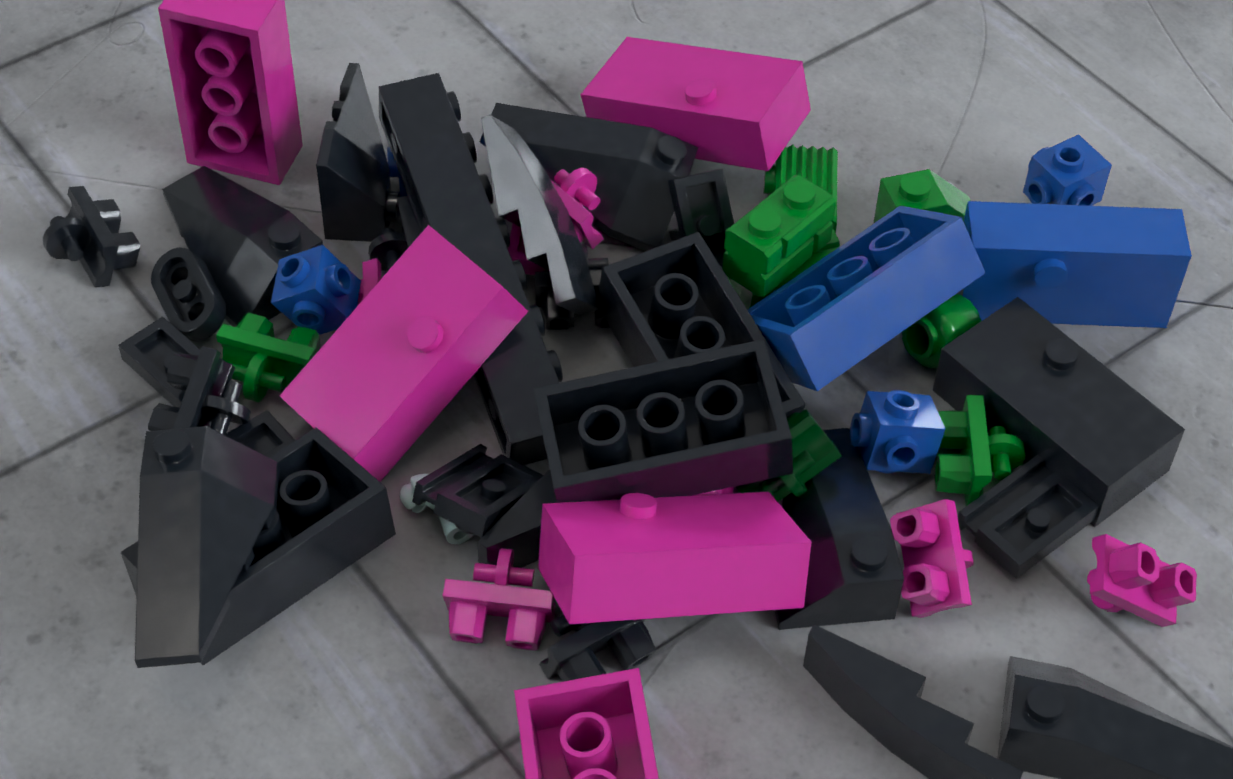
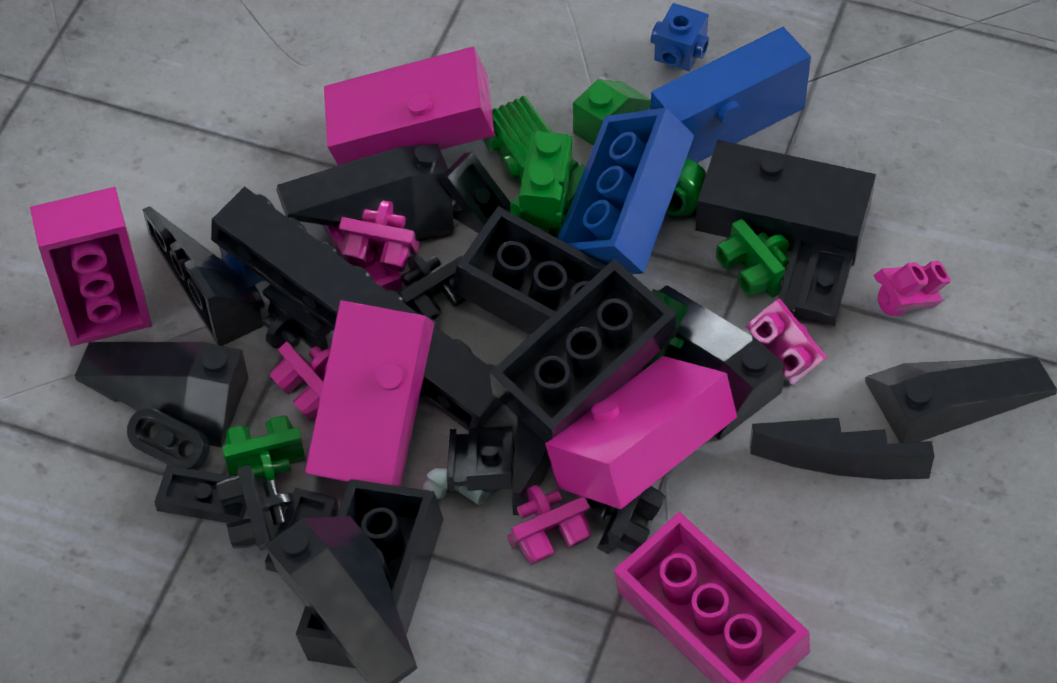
camera: 30 degrees left, 5 degrees up
(92, 237) = (59, 439): black hips -> none
(315, 290) = (265, 387): blue brick -> none
(531, 202) = (369, 243): slope -> none
(897, 432) = (706, 271): blue brick -> none

